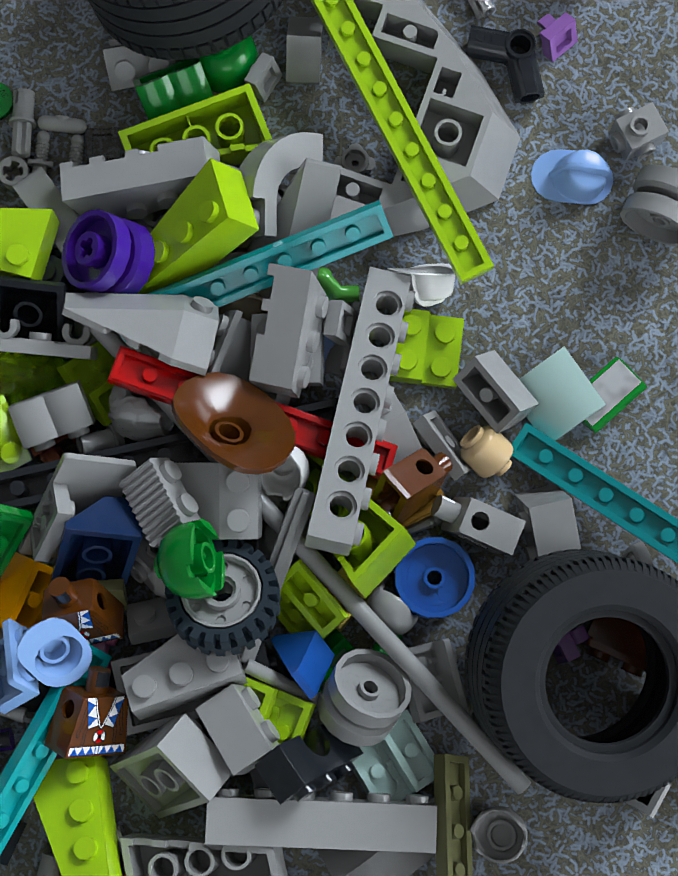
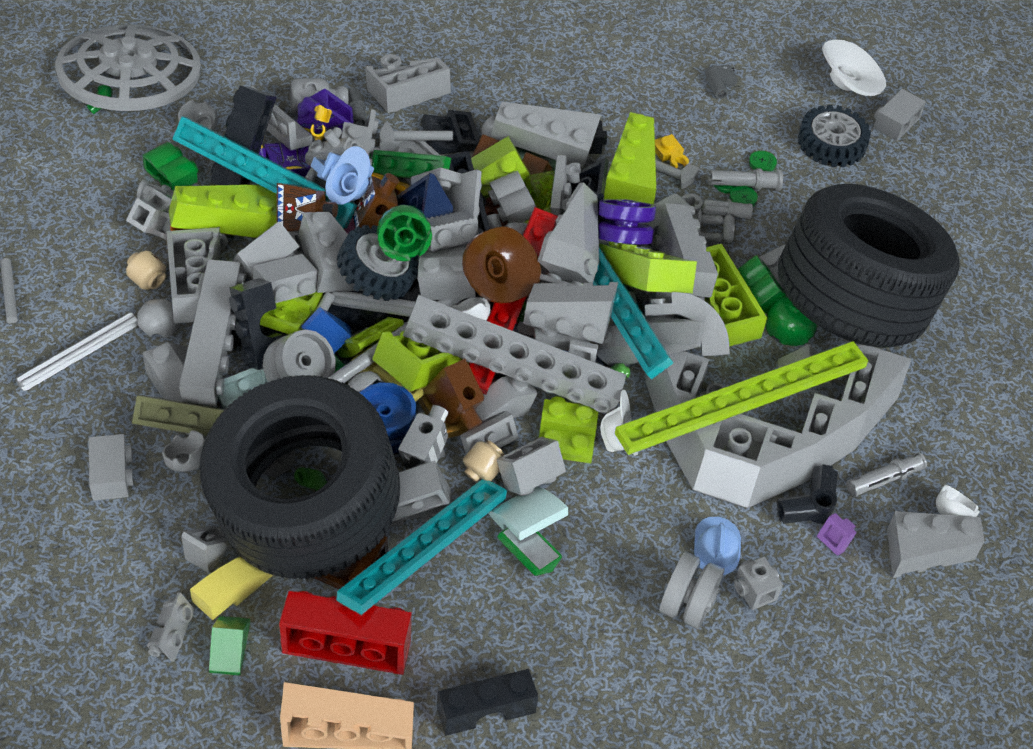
camera: 90 degrees right, 30 degrees down
(263, 76) = (777, 340): light grey plate -> none

